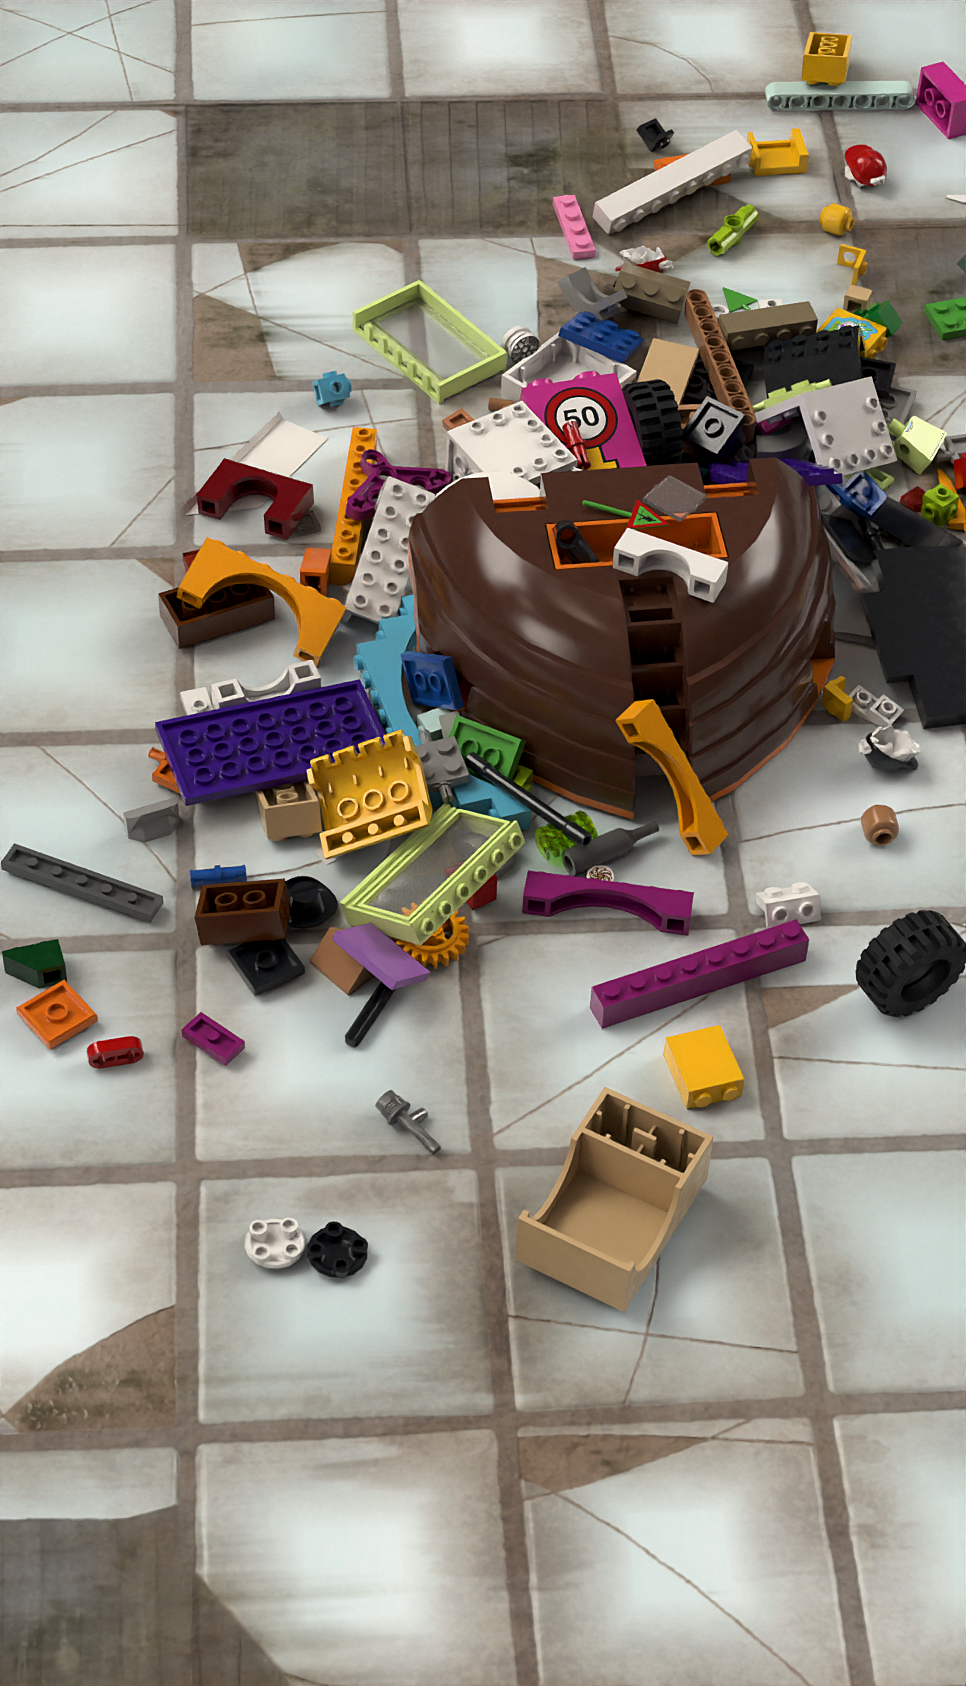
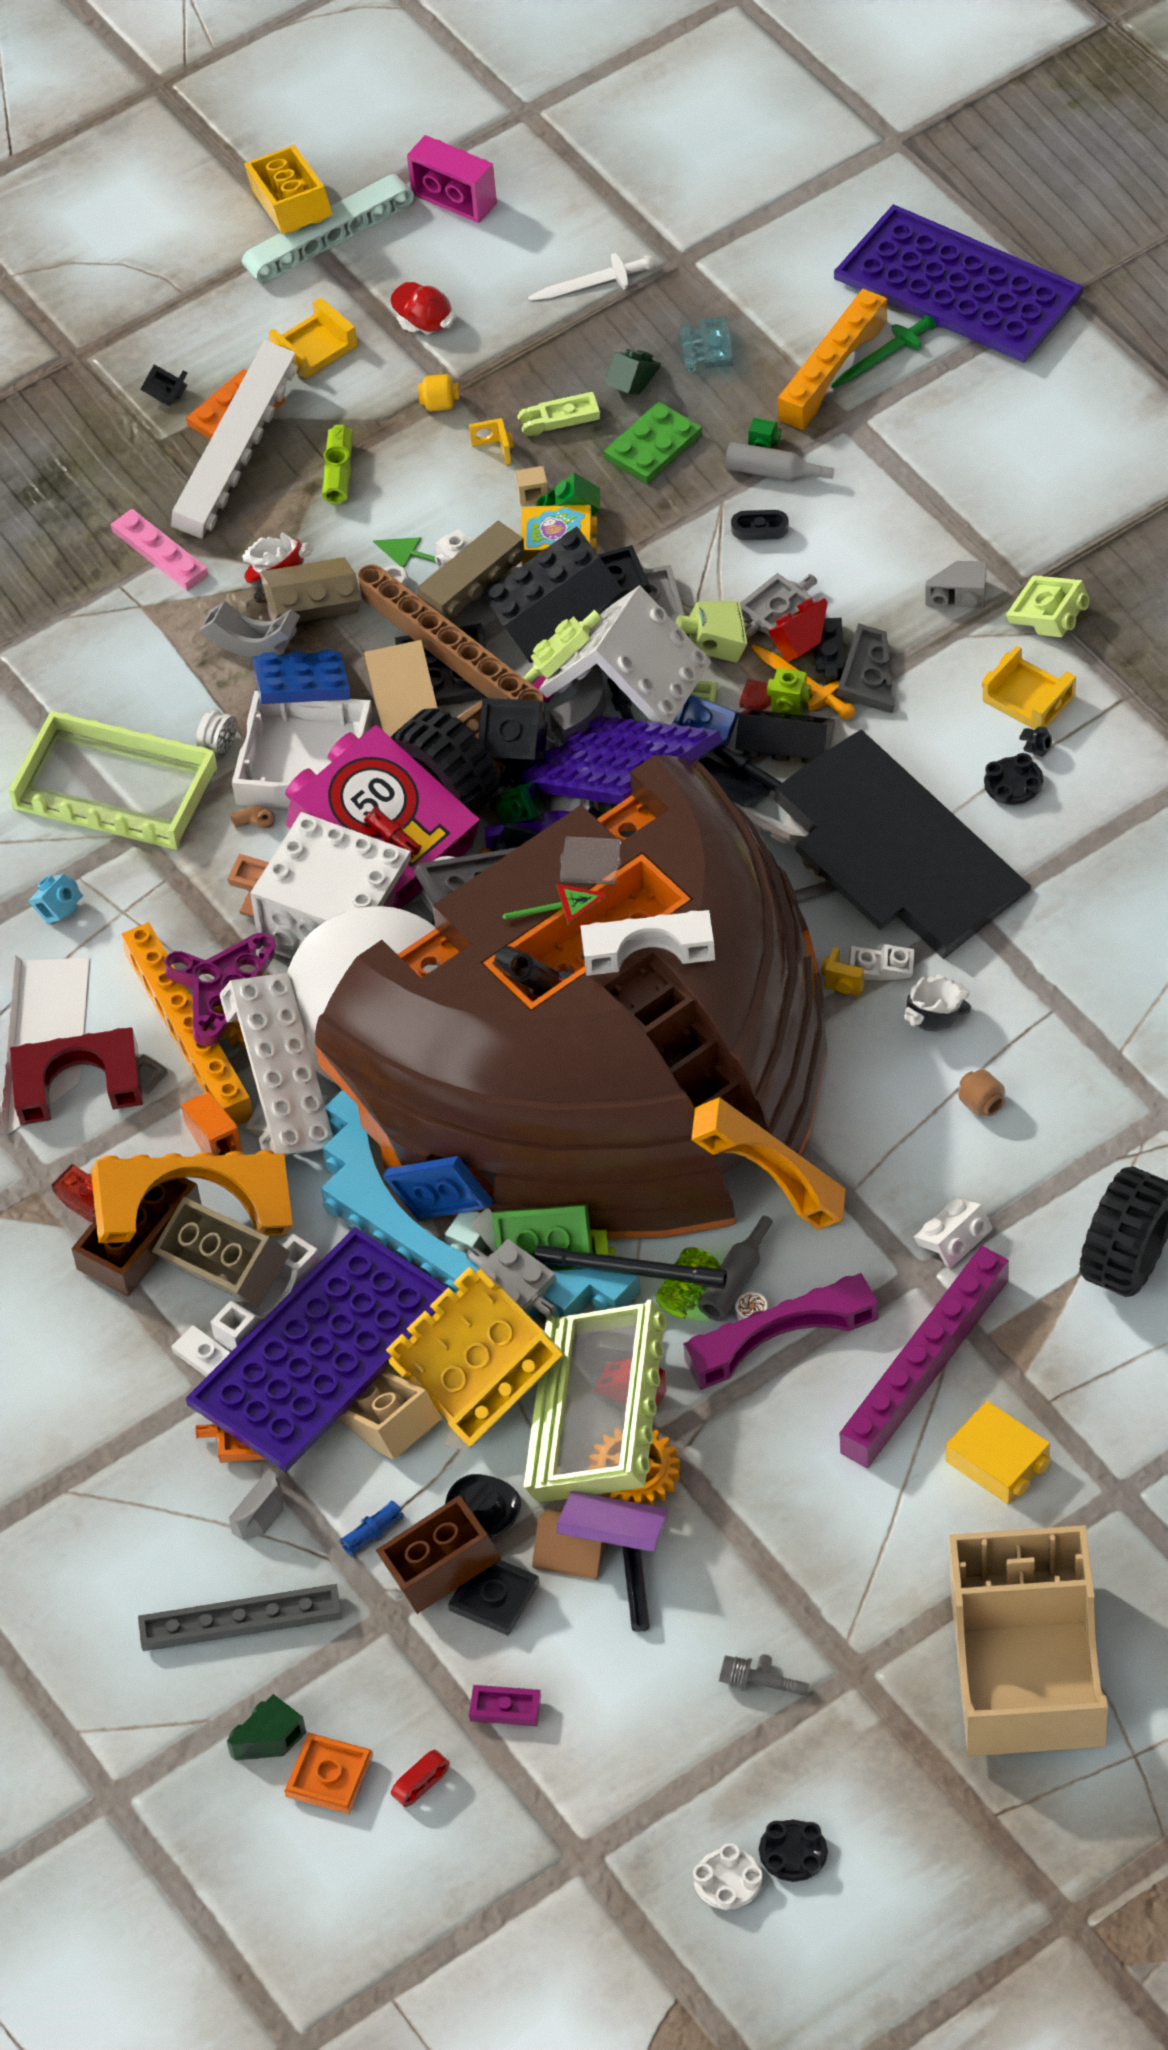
camera: 25 degrees left, 5 degrees up
(254, 646) = (221, 1251): none -> dark tan brick
(911, 269) = (559, 414): none -> yellowish green hinge

